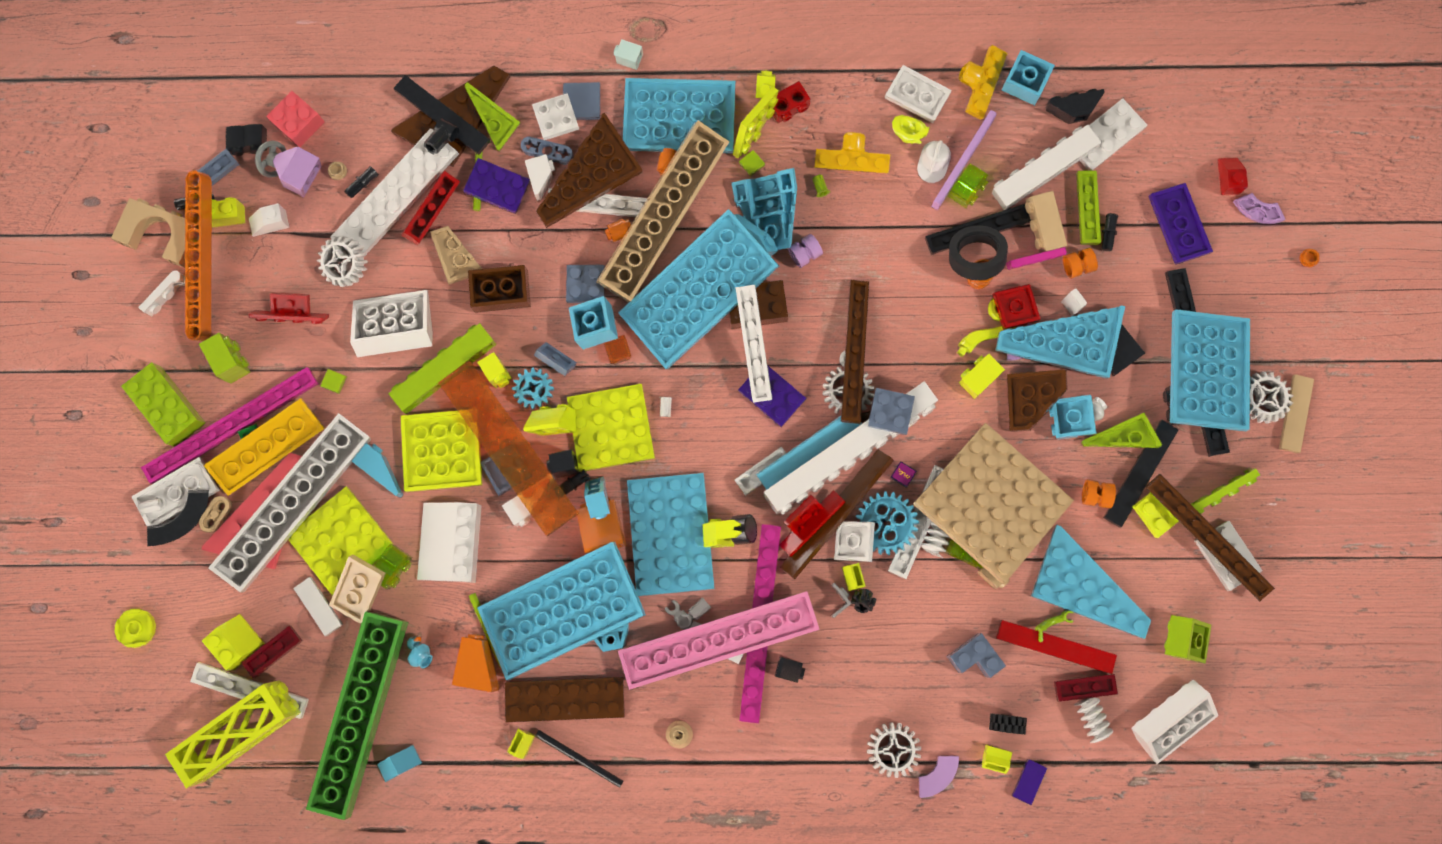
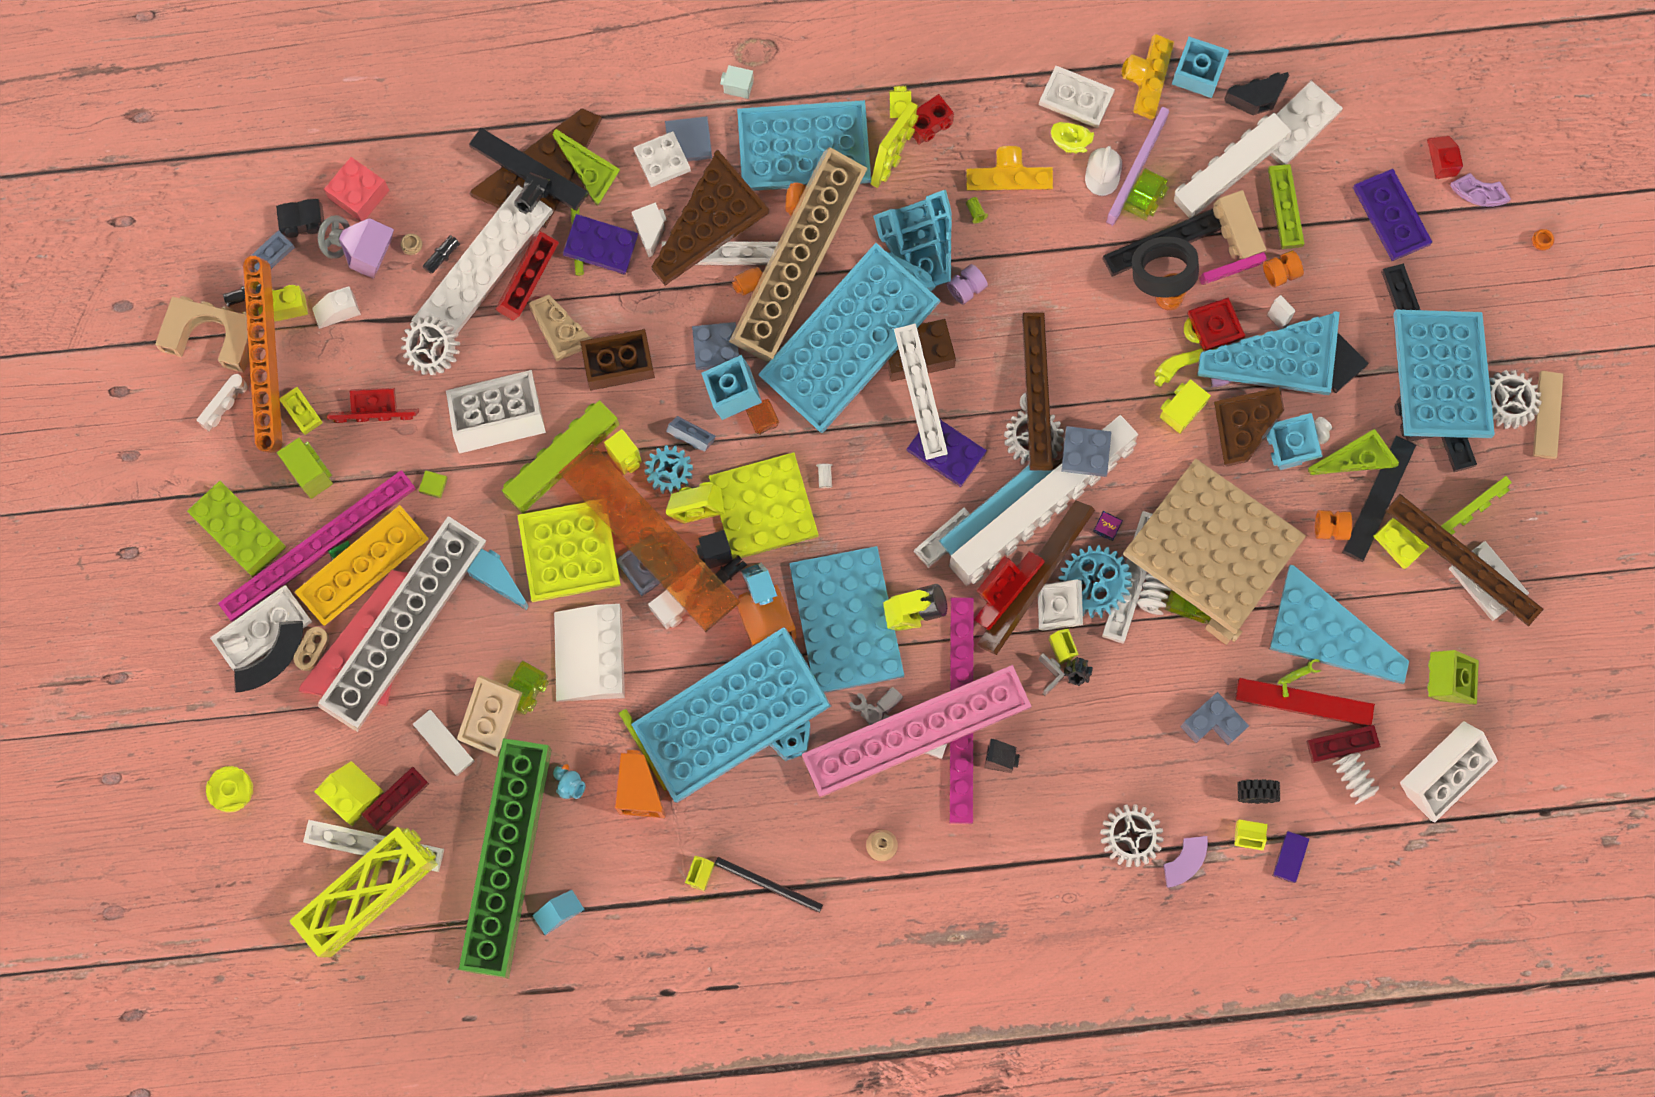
camera: 10 degrees left, 5 degrees down
(229, 306) = (301, 410): none -> neon yellow plate
(337, 532) = (454, 657): neon yellow plate -> none
(543, 143) = (638, 203): sand blue beam -> none
(564, 699) = (744, 819): reddish brown plate -> none
(752, 163) = (894, 192): lime tile -> none
(1109, 232) = (1313, 231): black axle -> none

